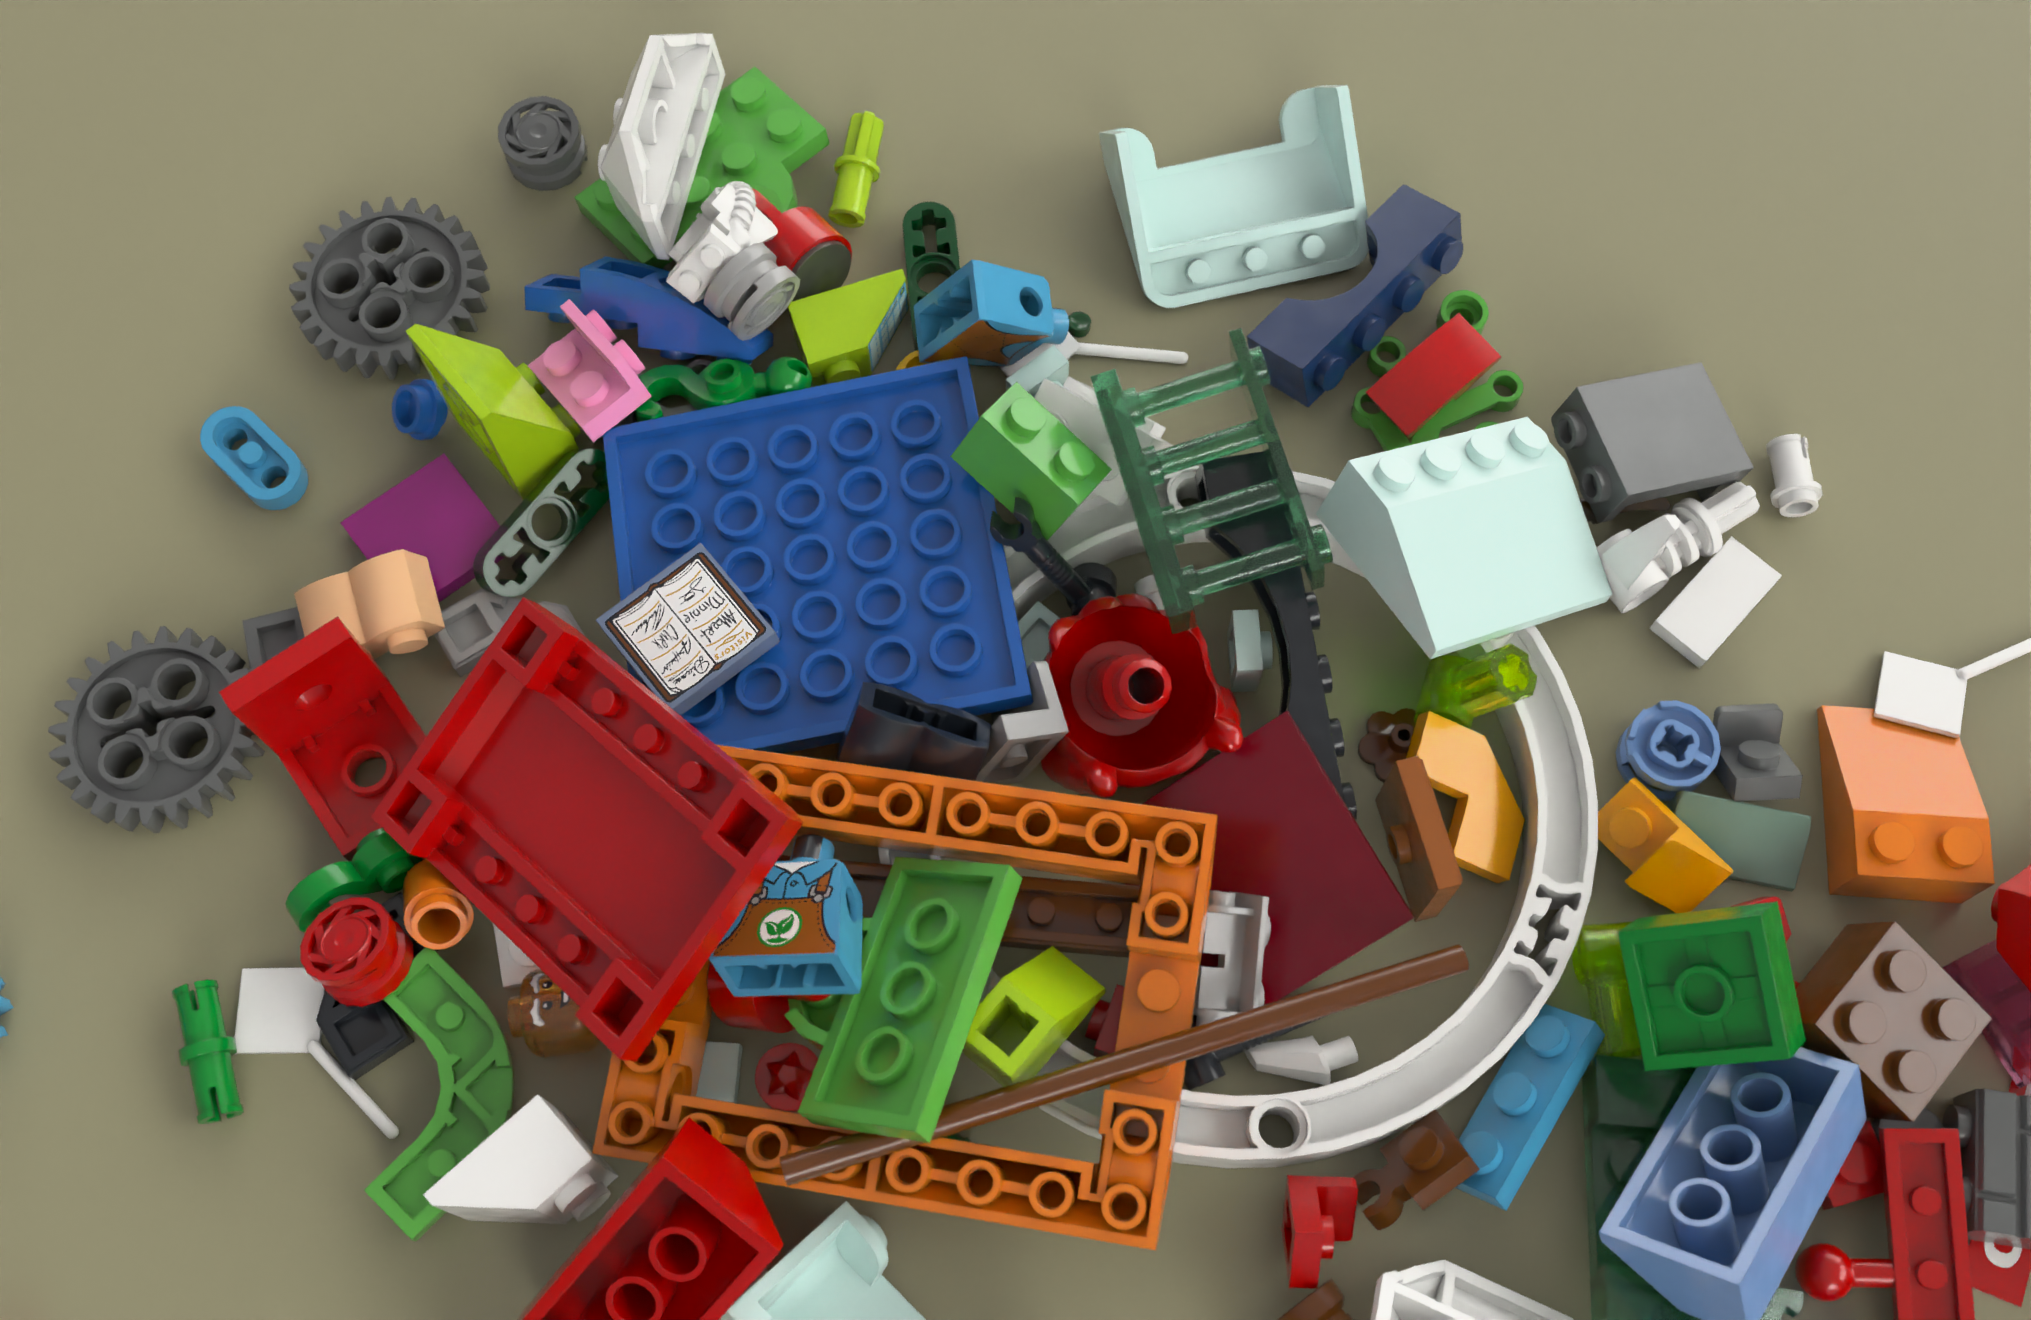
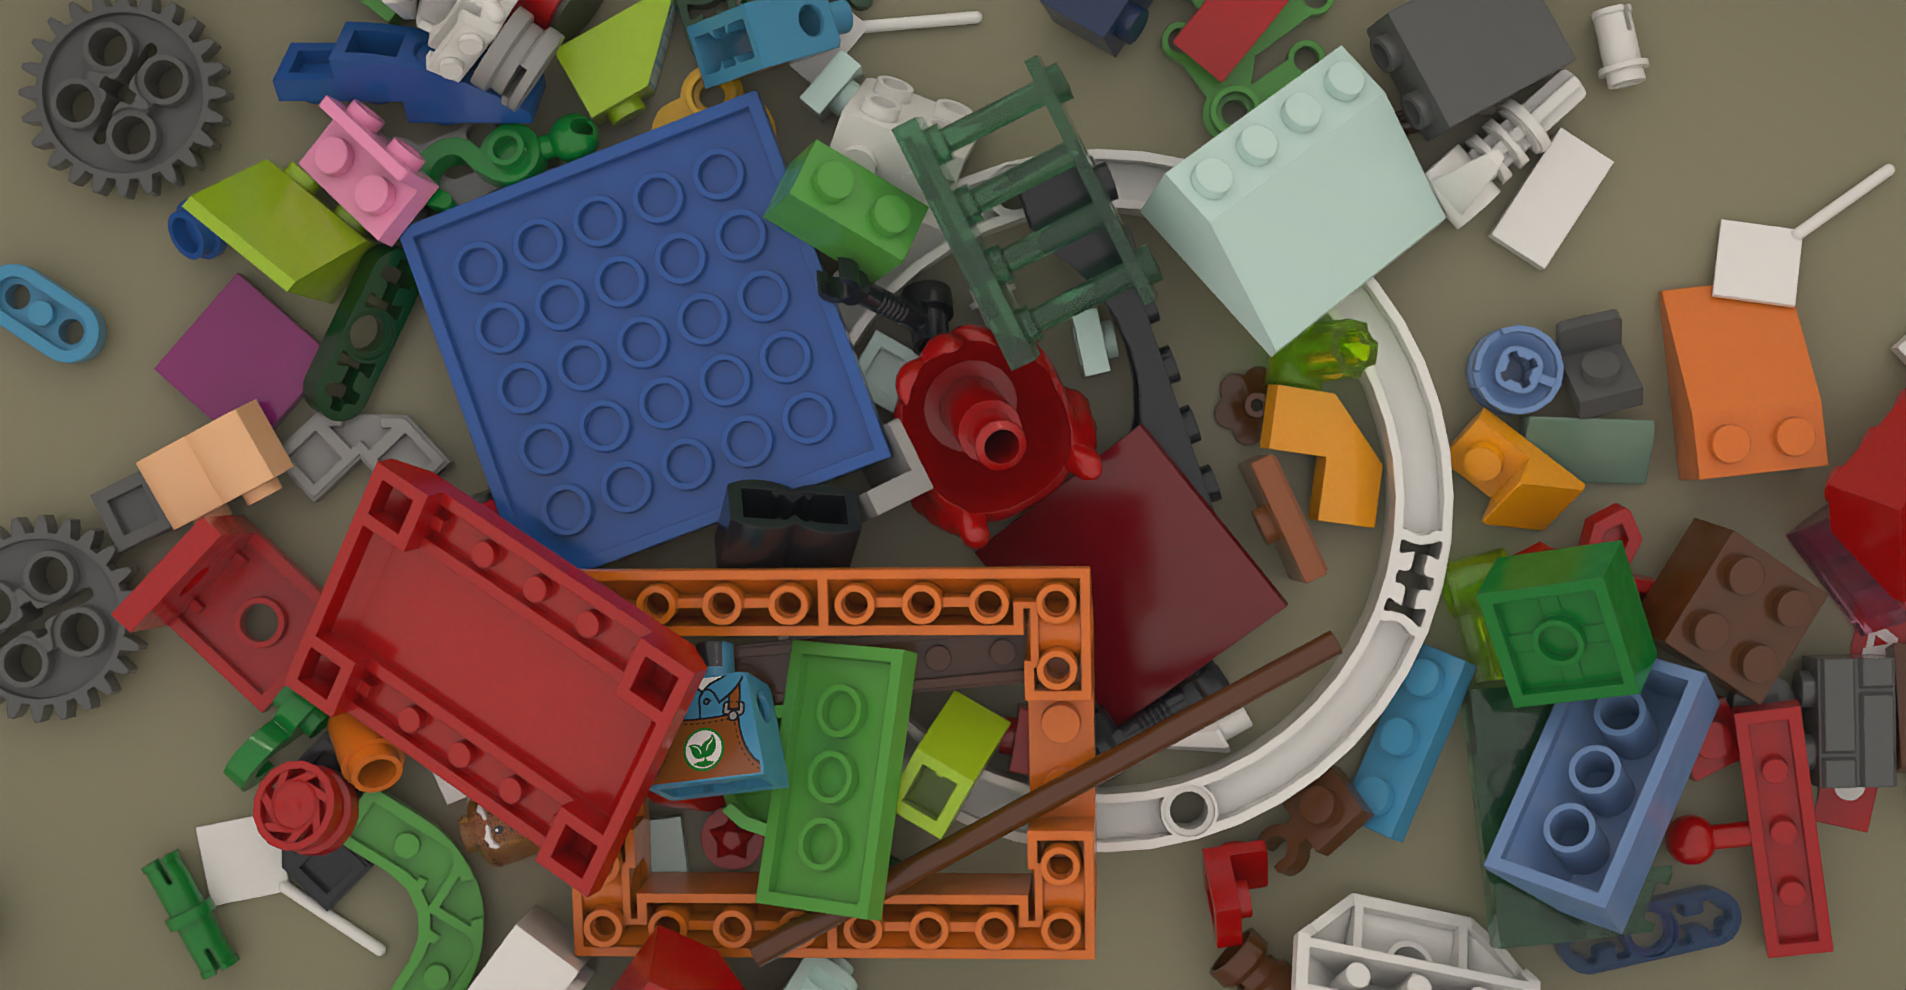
camera: 10 degrees left, 20 degrees up
(688, 630) = (540, 444): tile -> none
(1238, 932) = (1124, 644): light grey hinge -> none

